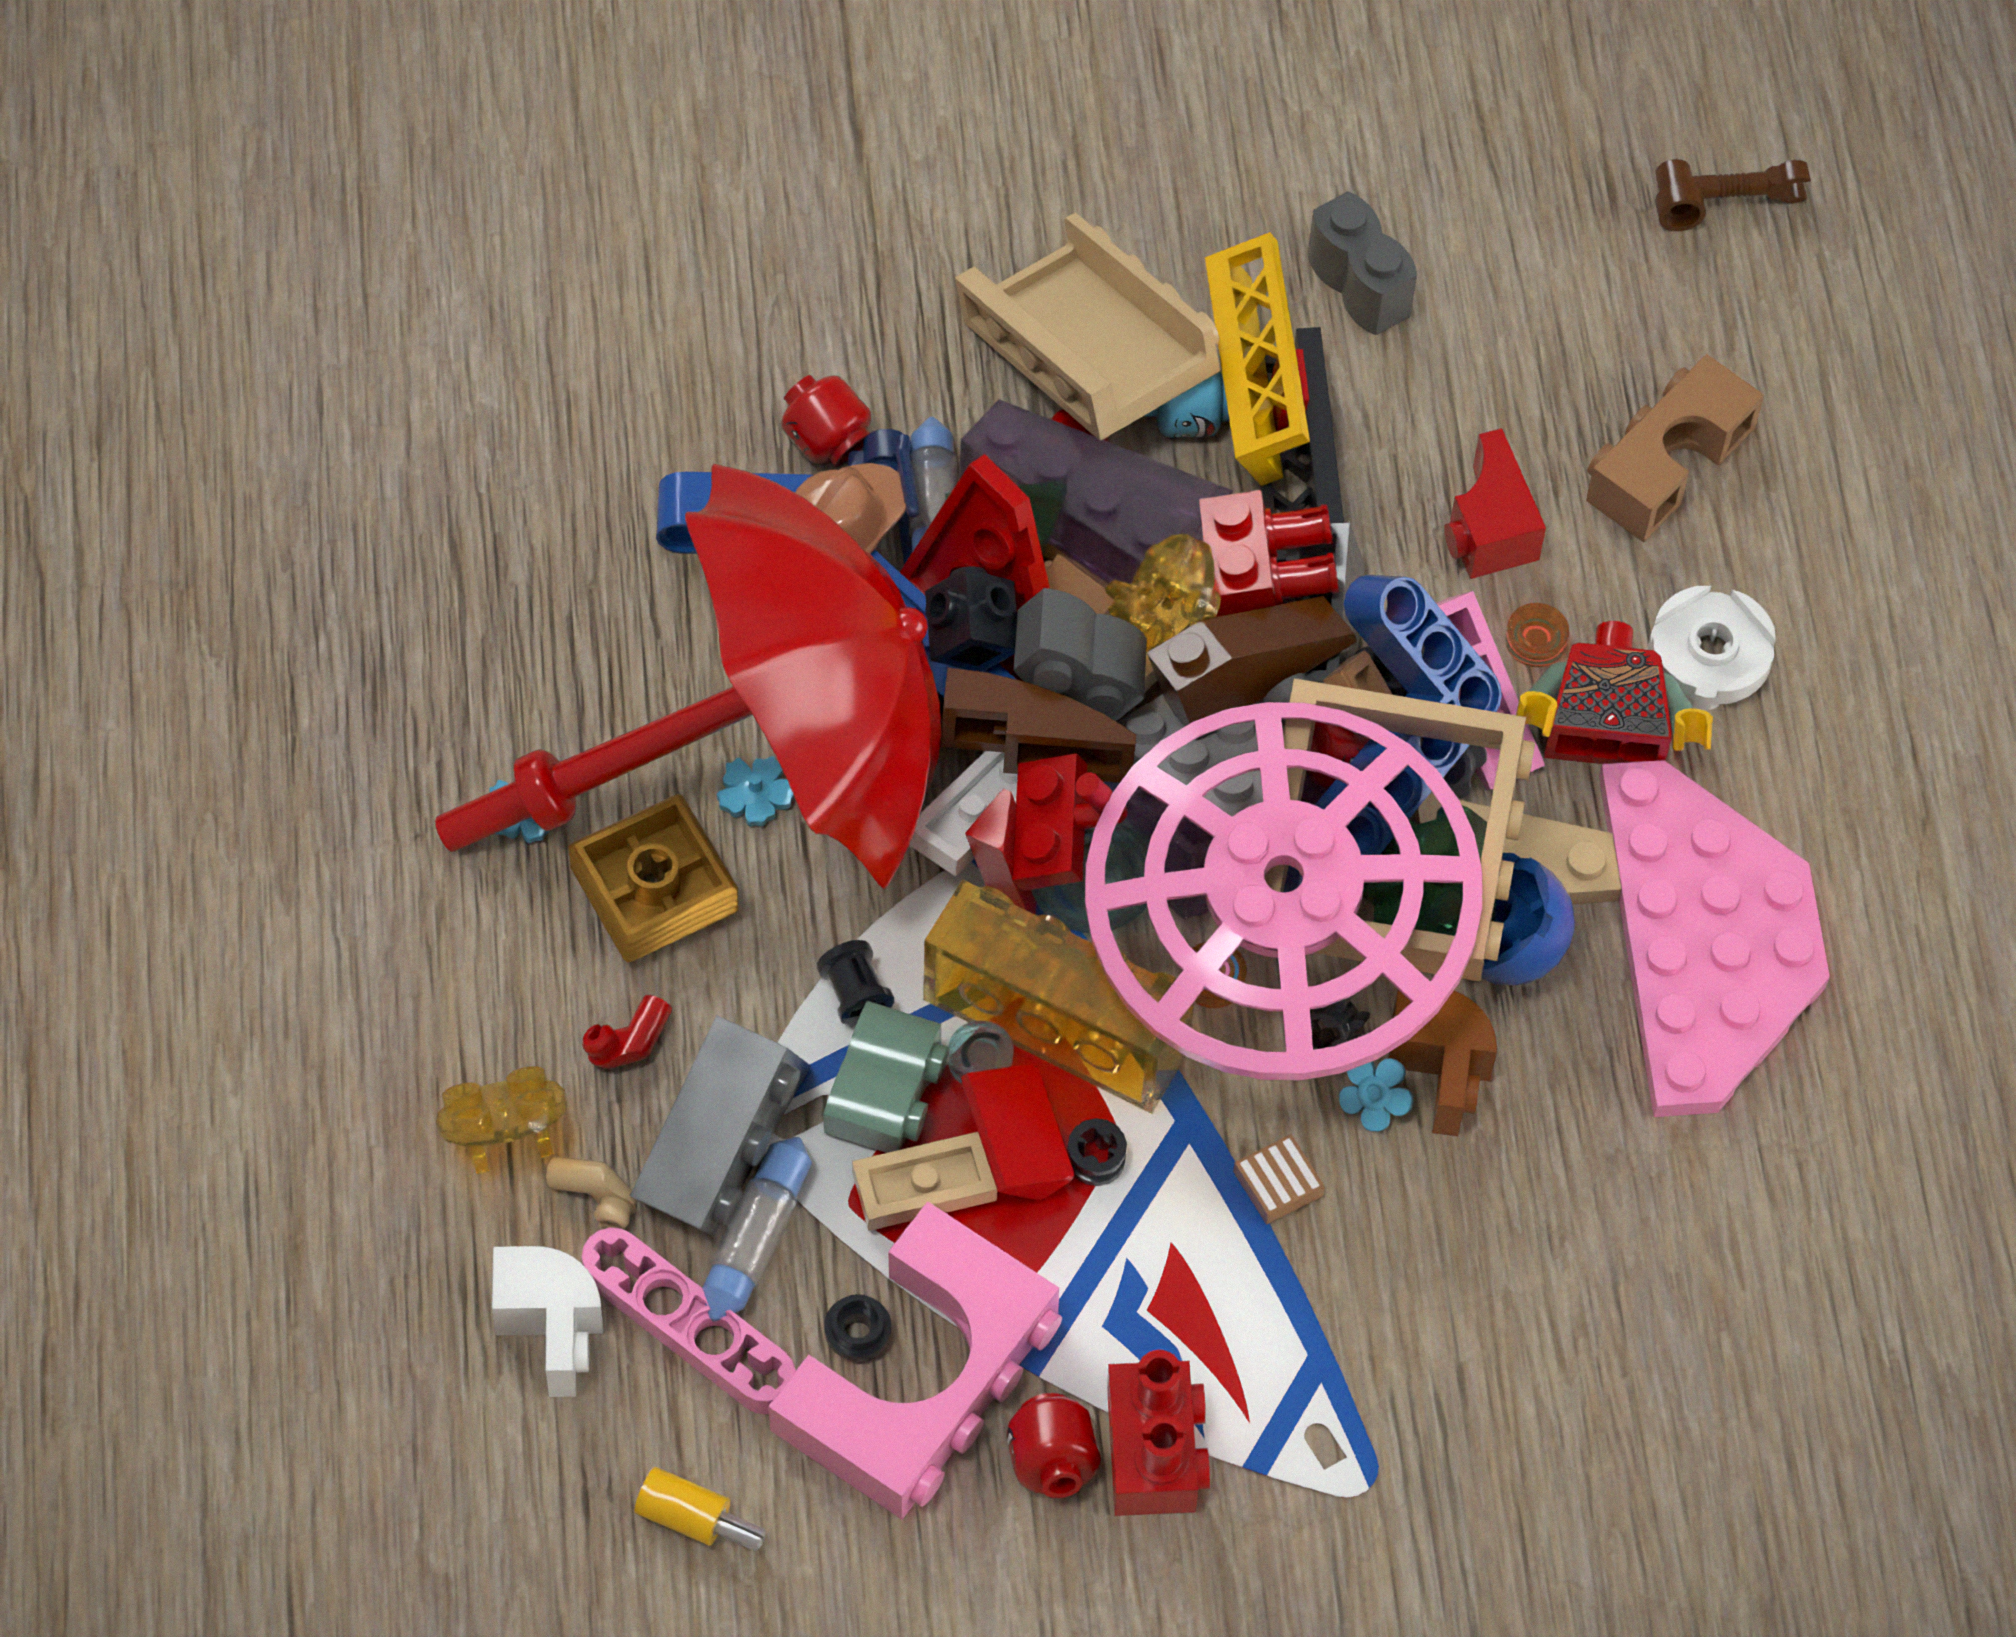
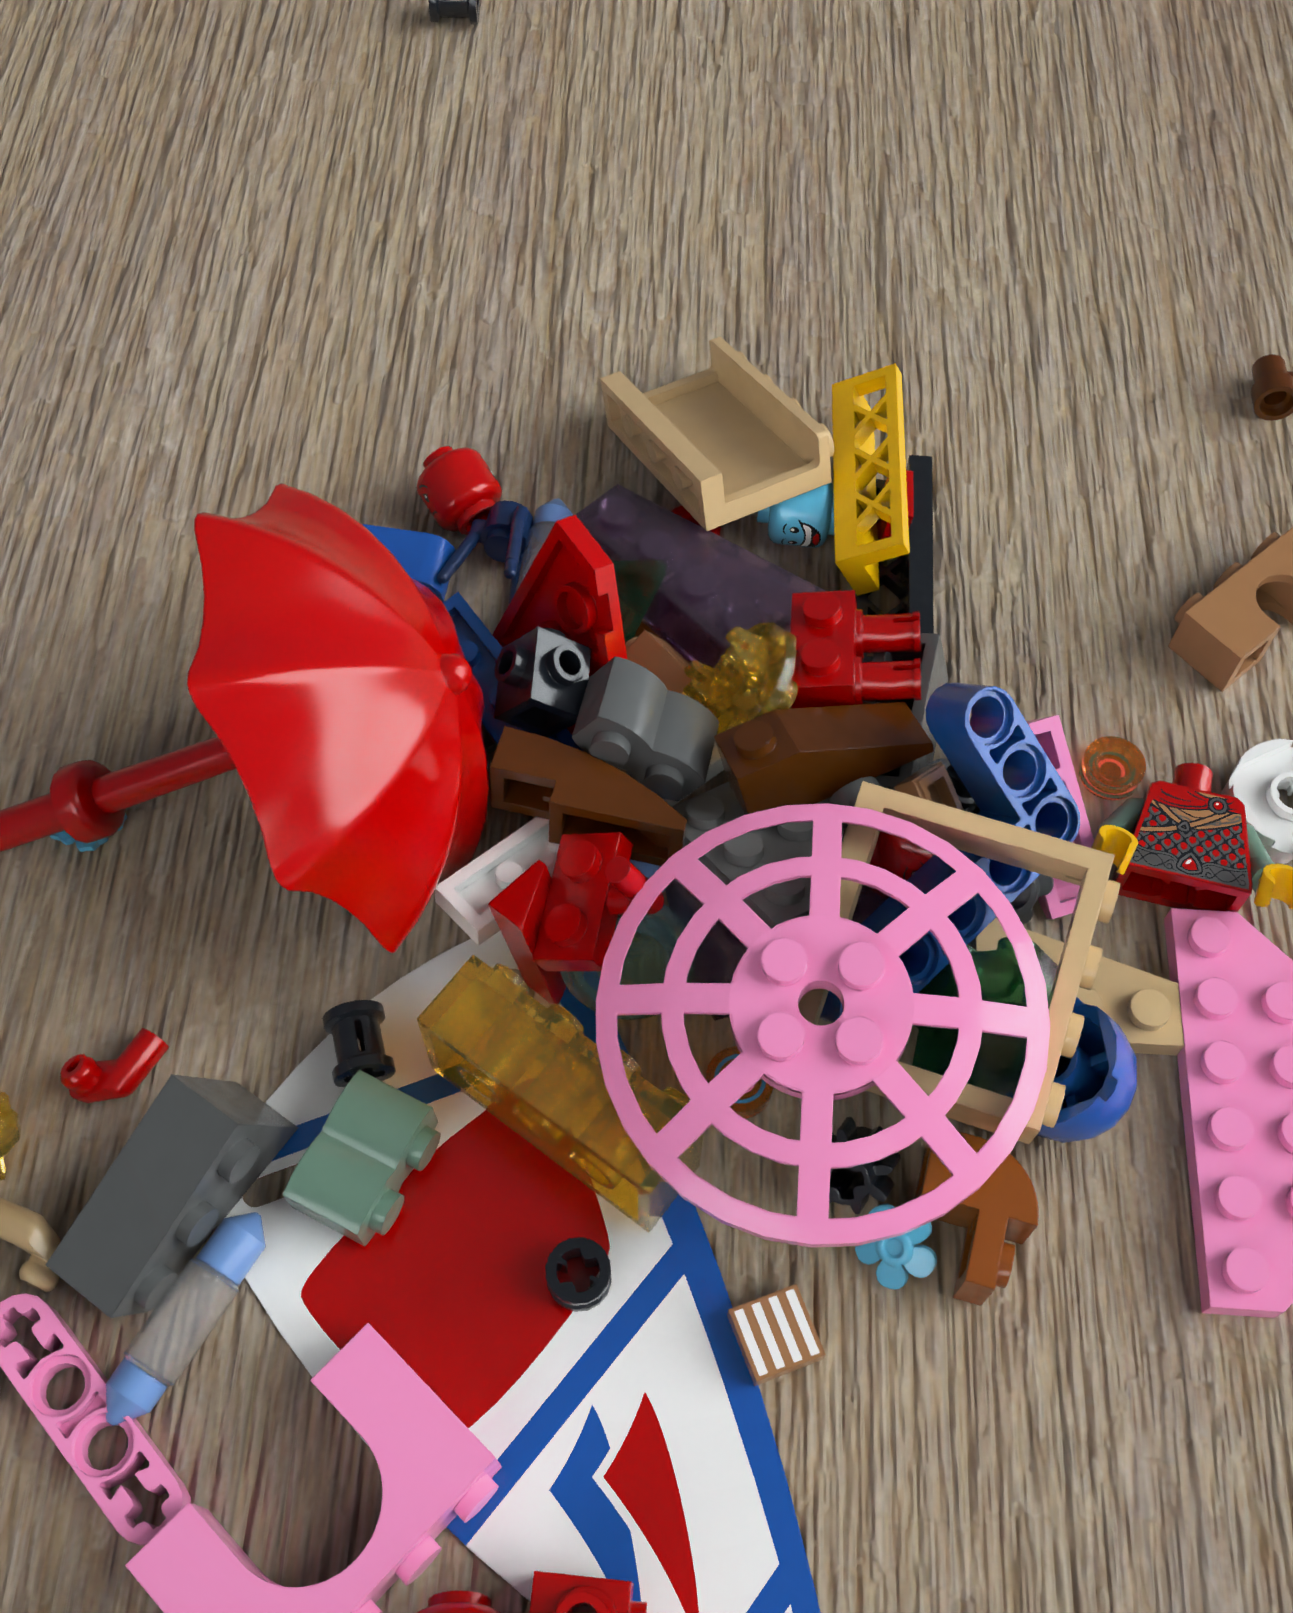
camera: 10 degrees right, 0 degrees up
(673, 848) = (143, 896): pearl gold brick -> none
(857, 1309) = (254, 1439): black plate -> none
(859, 498) = (454, 561): nougat piece -> none
(943, 1172) = (380, 1285): tan plate -> none
(979, 1048) = (475, 1141): clear light blue tile -> none
(1018, 1131) = (493, 1241): red slope -> none
(1362, 263) = (977, 409): dark grey brick -> none
(1497, 519) = (1084, 651): red arch -> none

